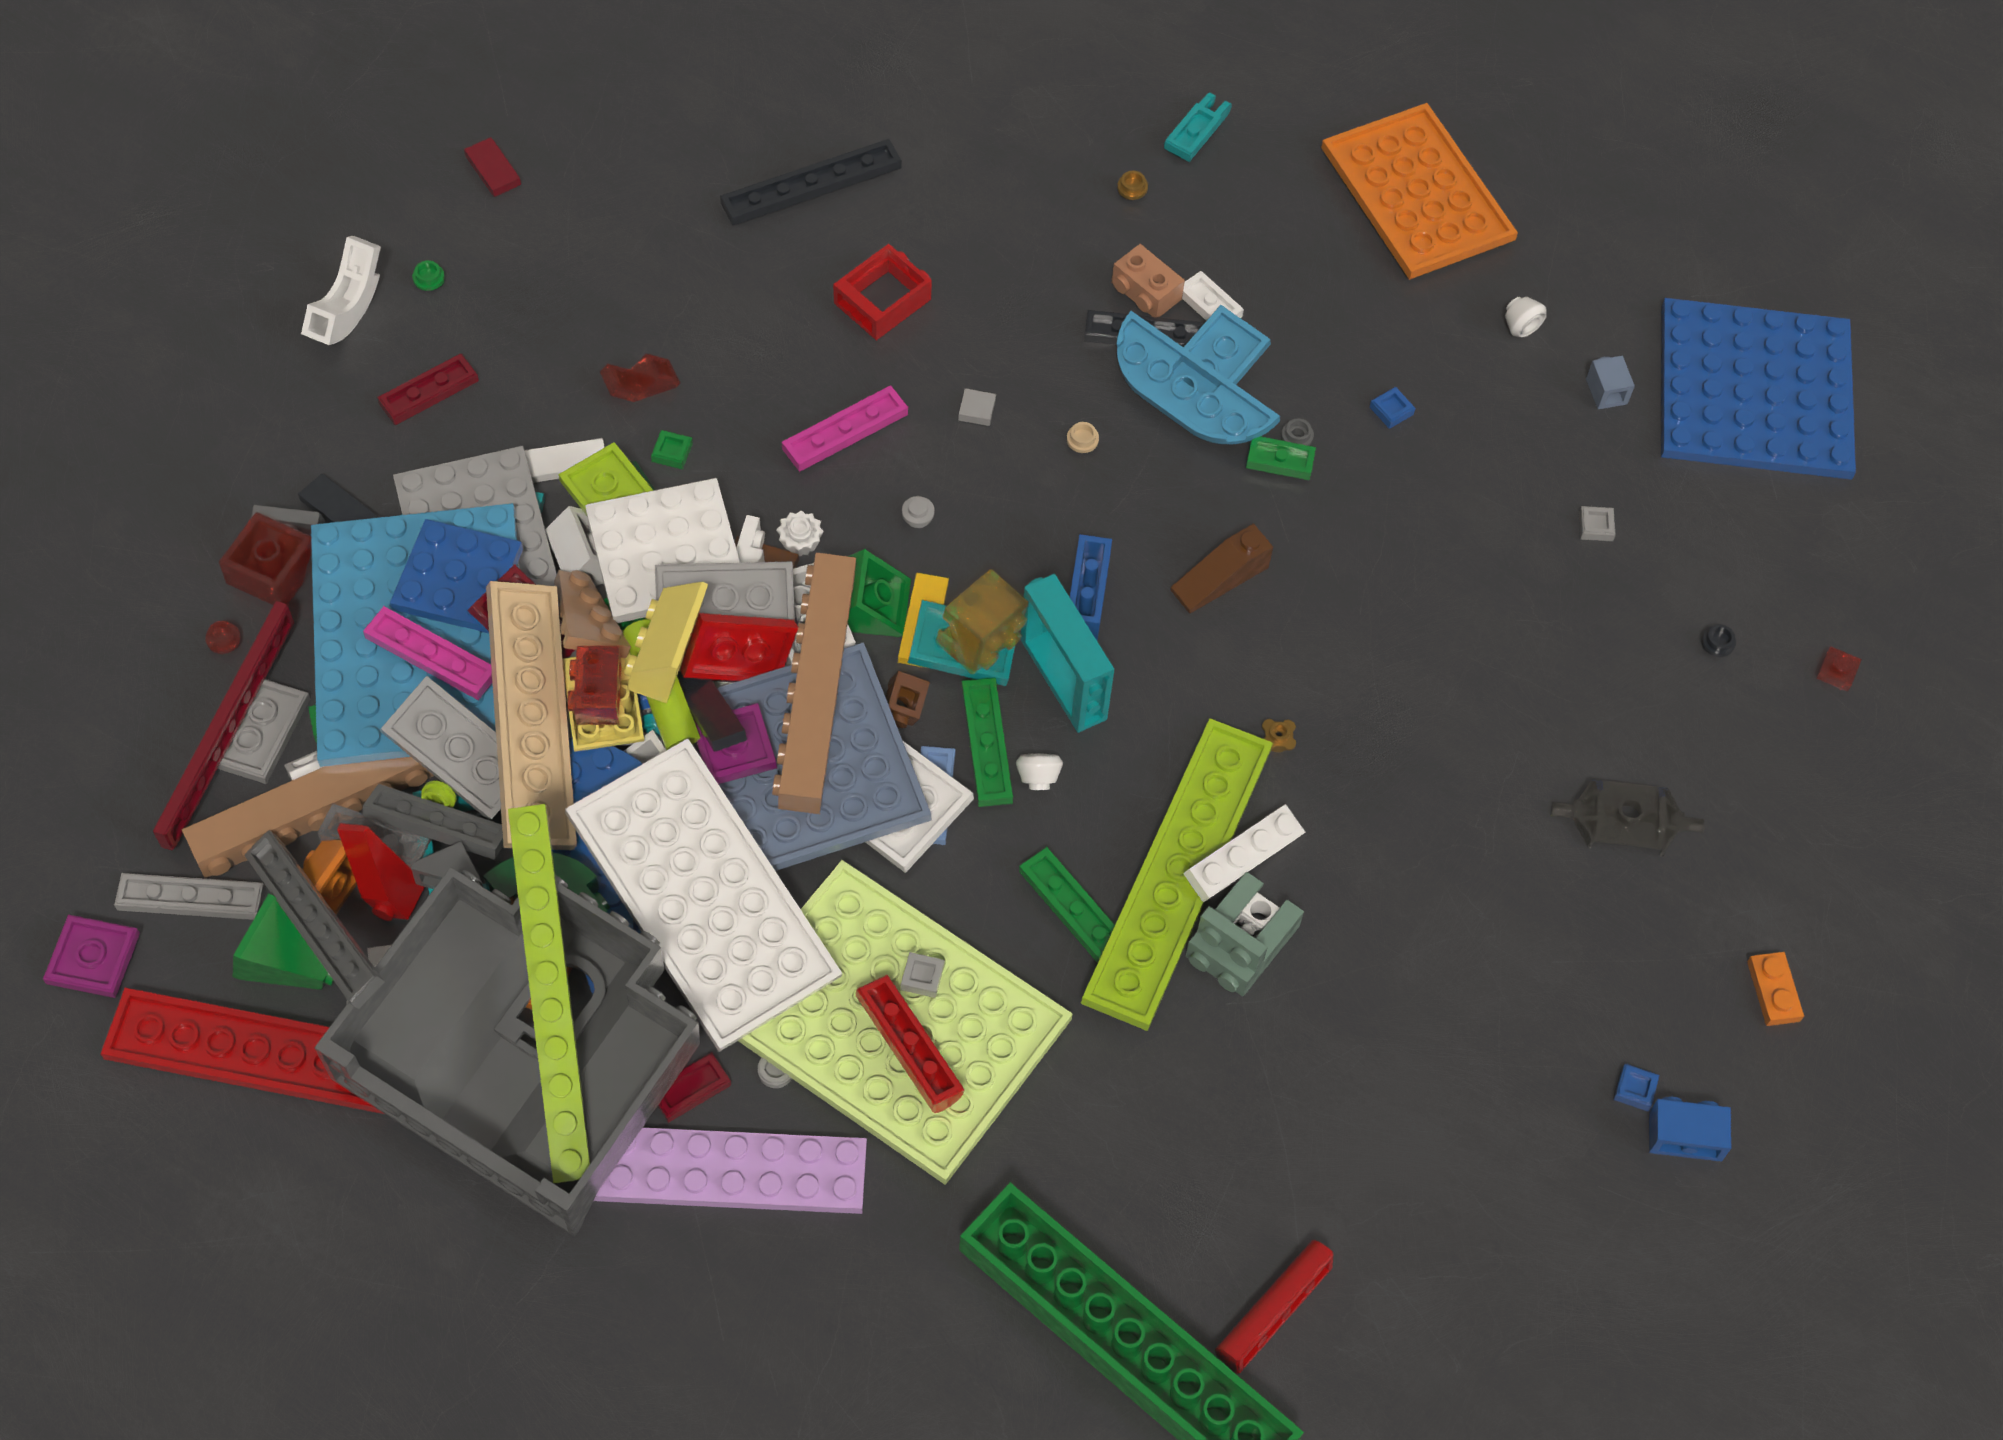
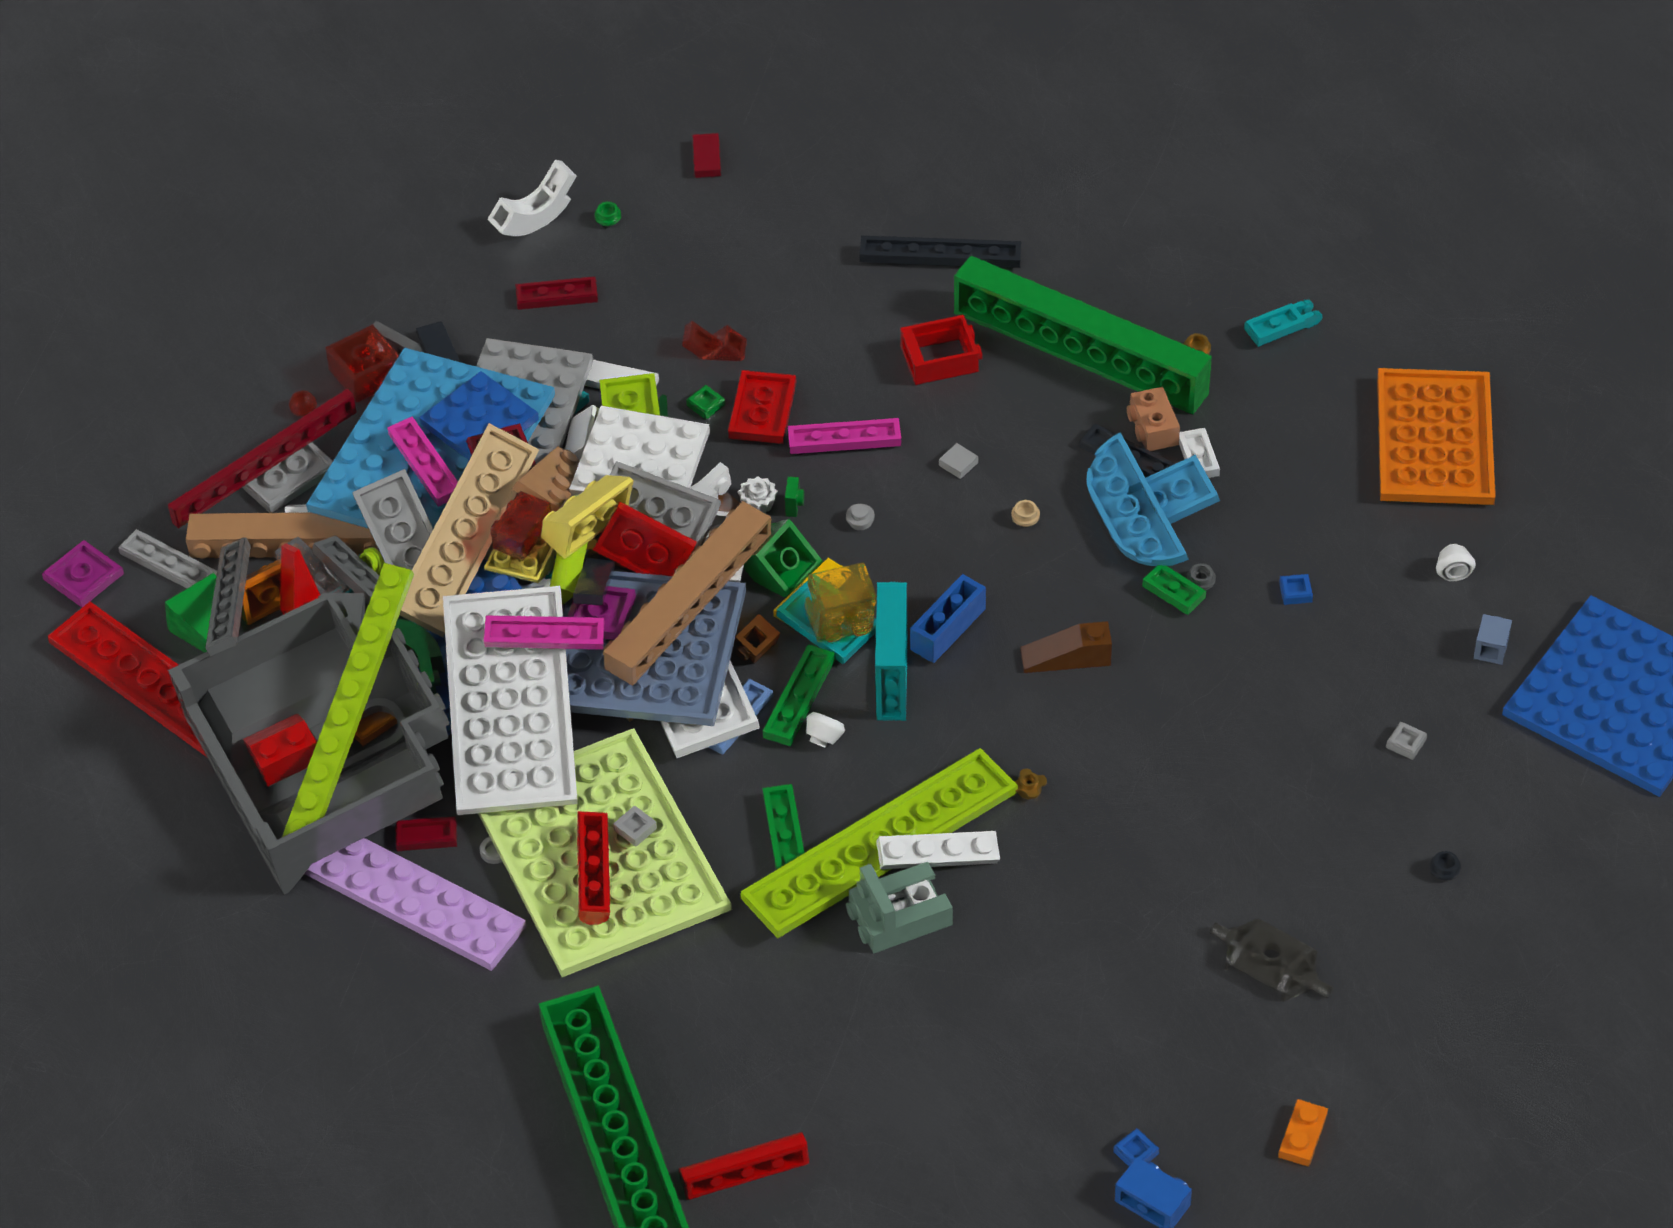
camera: 35 degrees right, 10 degrees down
(488, 1071) = (282, 749): none -> red slope
(705, 801) = (544, 632): none -> dark pink plate
(738, 430) = (762, 407): none -> red plate
(837, 519) = (793, 497): none -> green plate
(1018, 217) = (1081, 334): none -> green brick
(1839, 668) = (1535, 929): clear red plate -> none

